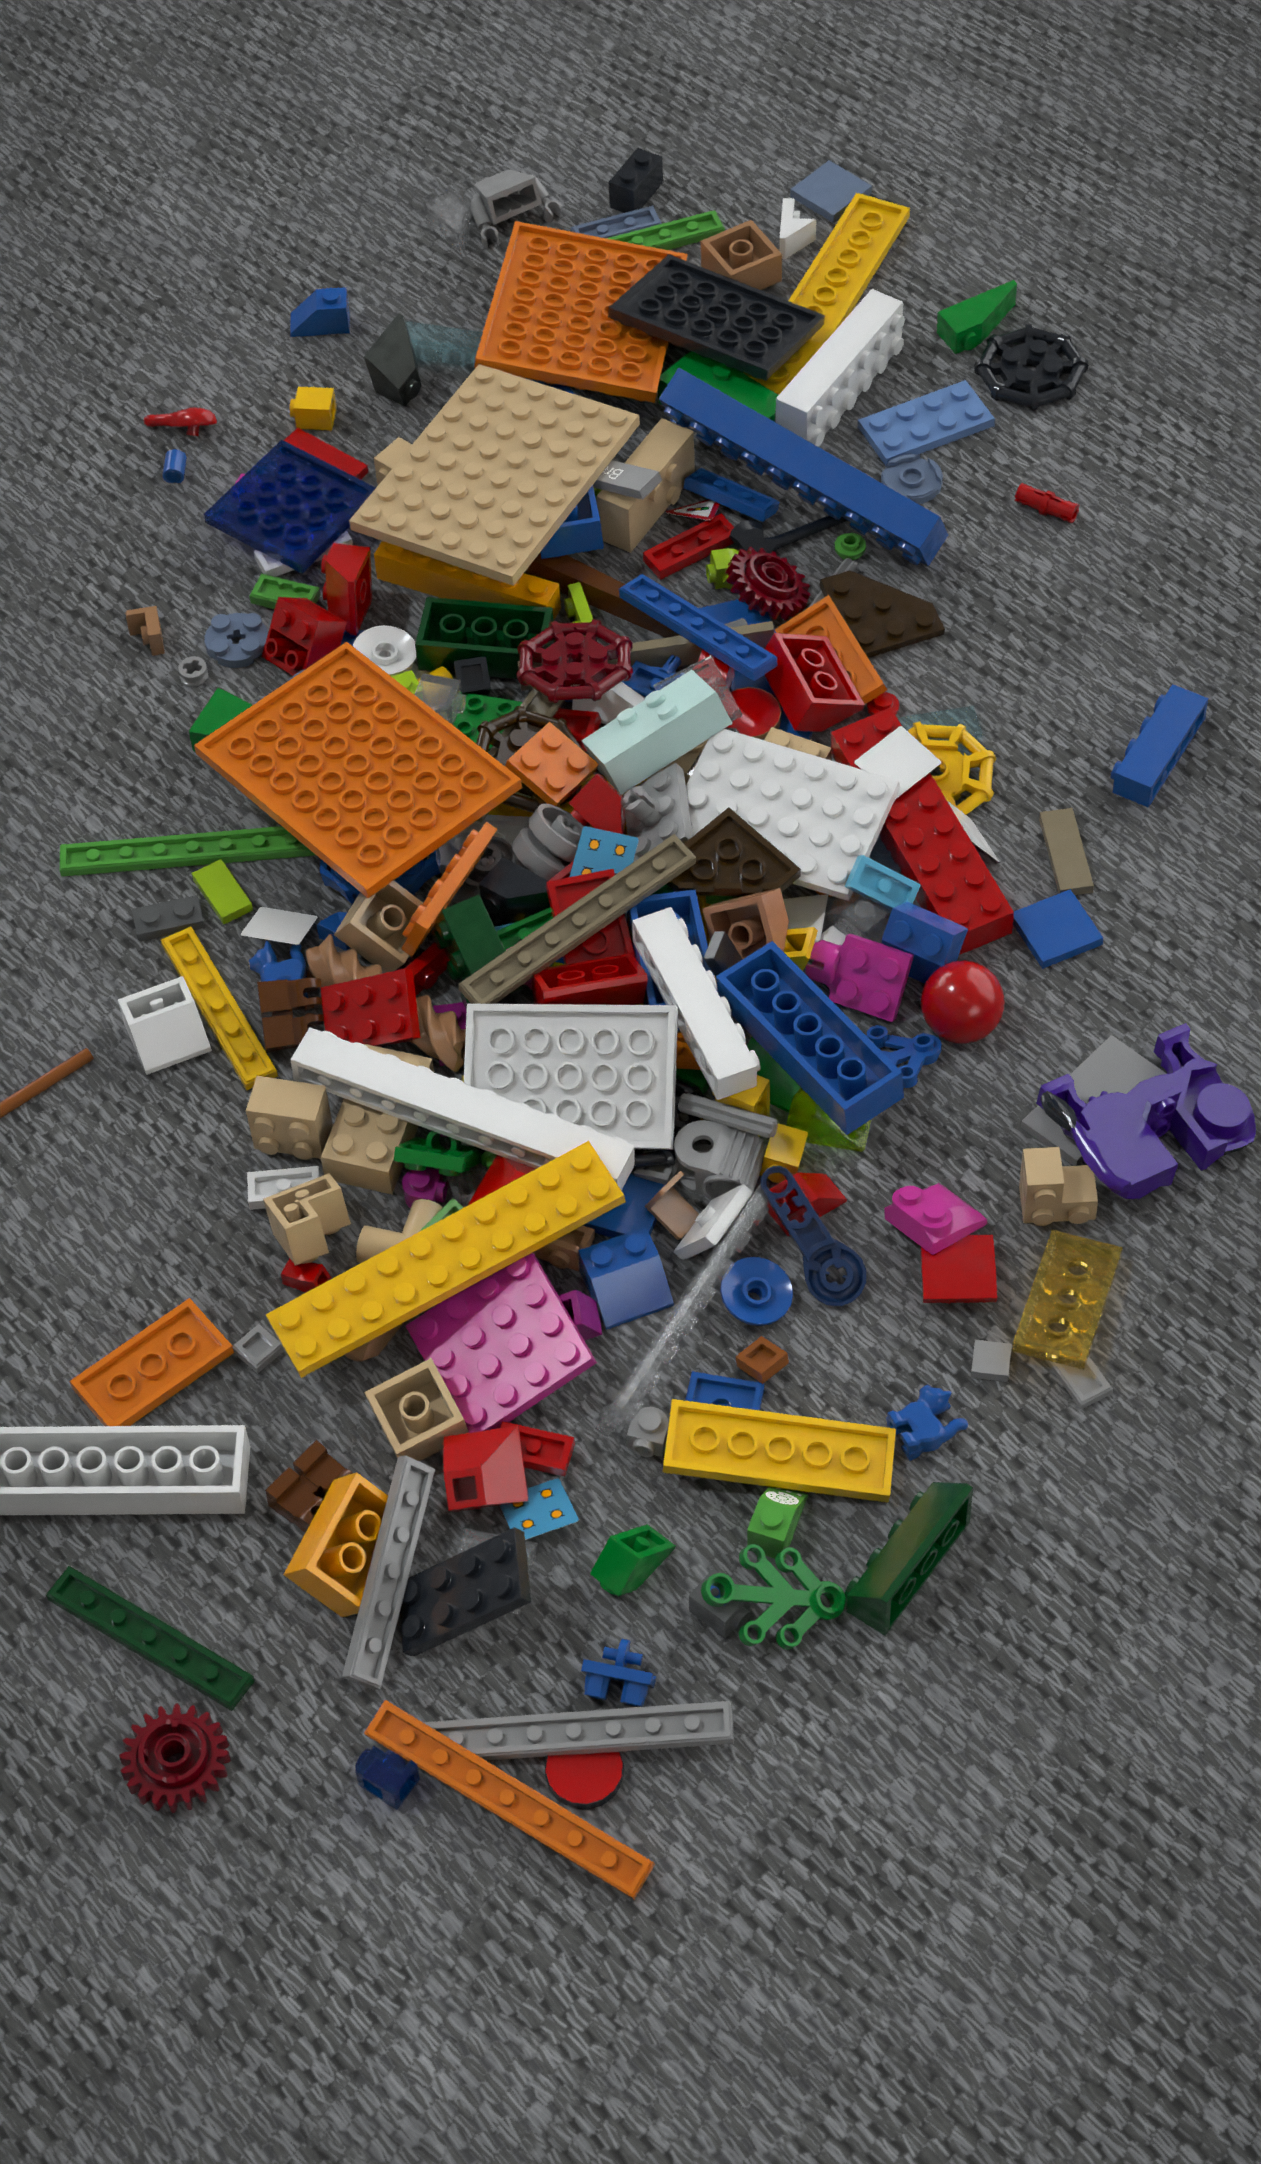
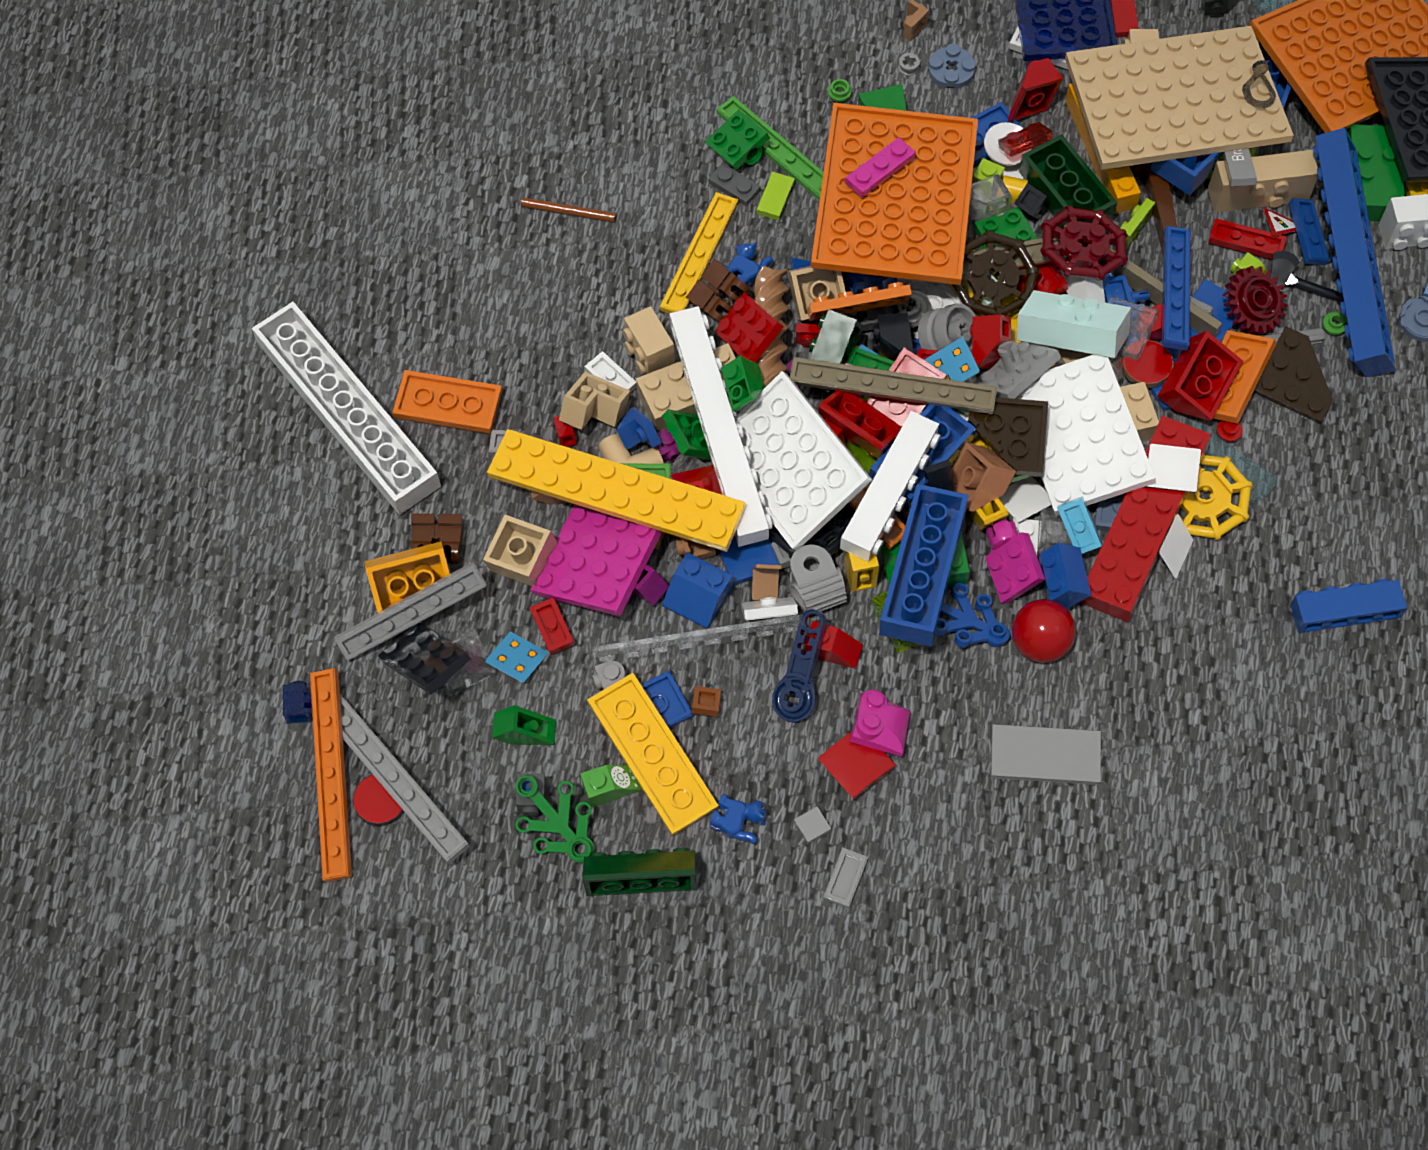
camera: 50 degrees right, 10 degrees up
(123, 874) = (738, 140): none -> green plate
(150, 1638) = (292, 528): dark green tile -> none
(156, 743) = (839, 85): none -> bright green plate
(164, 1025) = (658, 237): white slope -> none
(177, 1781) = (212, 593): dark red gear -> none
(270, 588) = (1004, 65): bright green plate -> none
(279, 925) = (775, 240): white sticker -> none
(301, 634) = (980, 94): red slope -> none
(318, 756) = (880, 167): none -> dark pink plate
(383, 1193) = (637, 429): none -> blue slope
(400, 629) = (1025, 139): none -> clear red plate
(441, 1052) = (742, 381): none -> green slope
(484, 1469) = (511, 610): red slope -> none
(548, 382) = (1259, 69): none -> clear smoke piece
(552, 765) = (998, 288): orange plate -> none
(635, 1681) = (450, 771): blue hips -> none
(728, 1115) = (841, 563): light grey axle -> none
(758, 1277) = (747, 651): blue dish -> none
(784, 1150) = (851, 611): yellow brick -> none
(1055, 1191) = (951, 775): tan brick -> none
(1056, 929) = (1153, 645): blue tile -> none
(1066, 851) = (1216, 610): dark tan tile -> none
(1081, 1317) = (883, 855): clear yellow plate -> none
(1122, 1130) = (1022, 780): dark purple animal -> none

